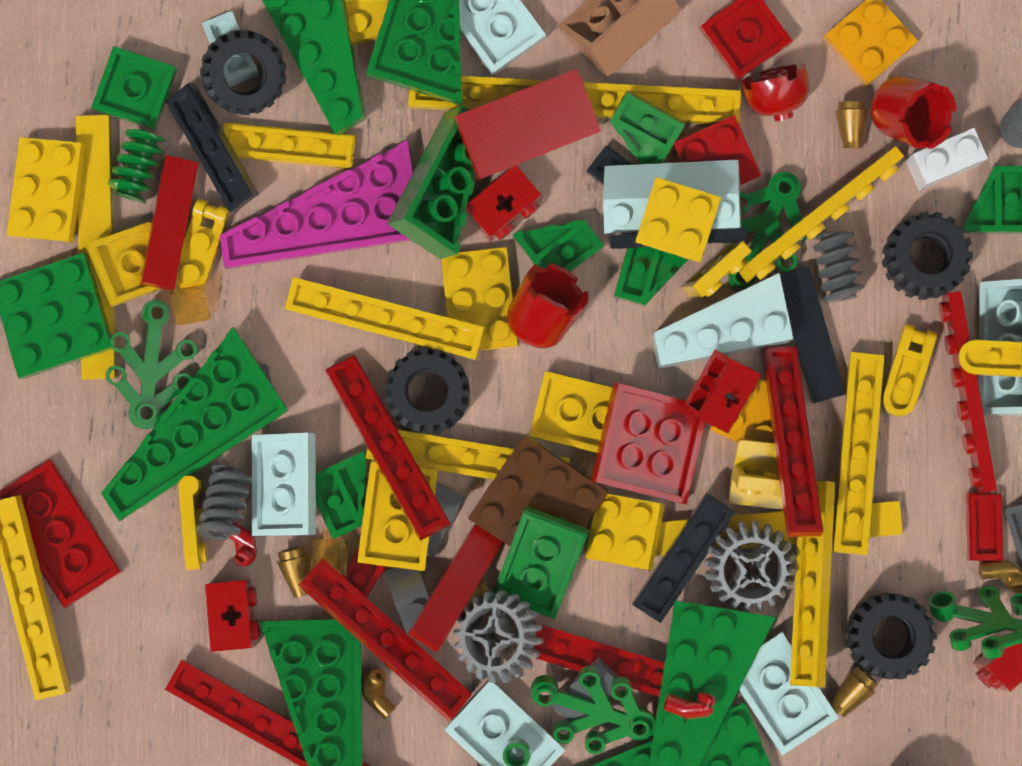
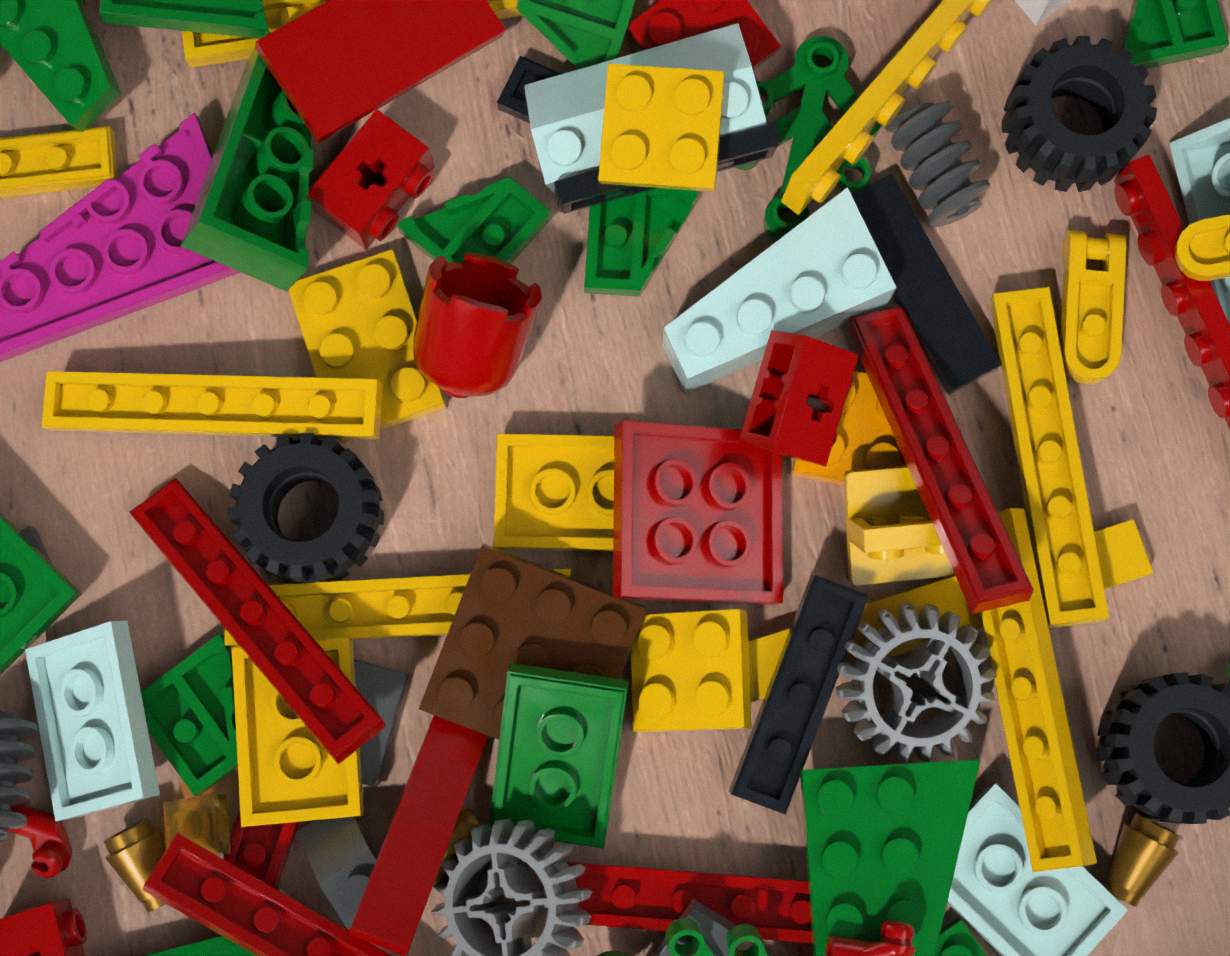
camera: 15 degrees left, 5 degrees down
(708, 278) = (754, 196): yellow plate -> none

